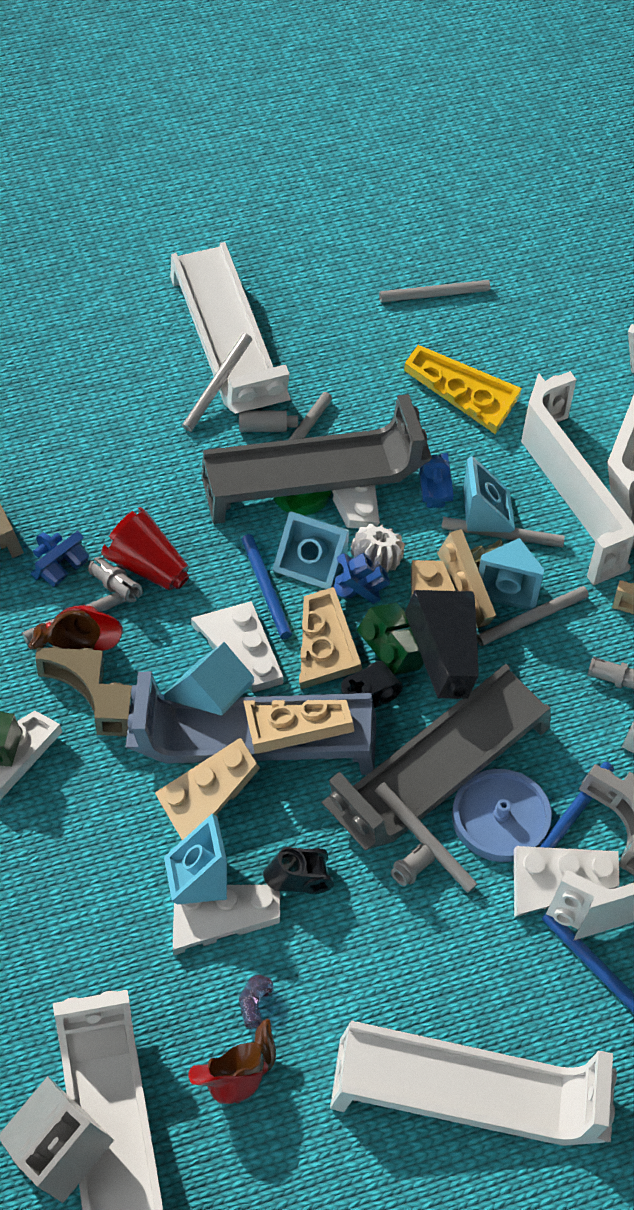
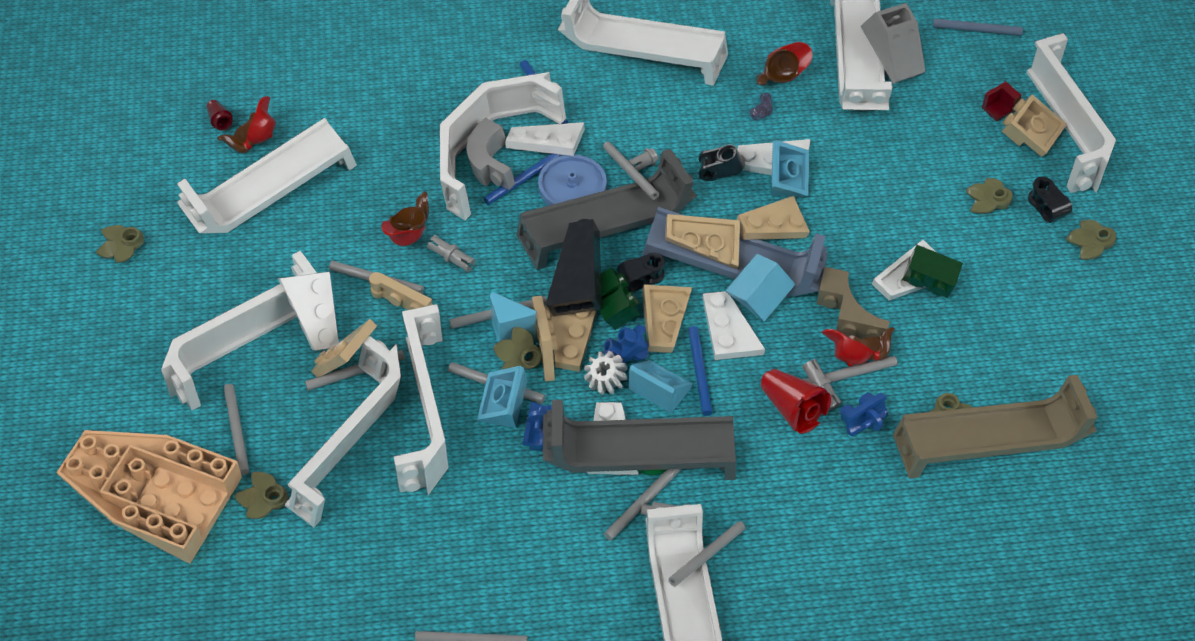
camera: 165 degrees left, 0 degrees up
(468, 389) = (475, 513): yellow wing -> none

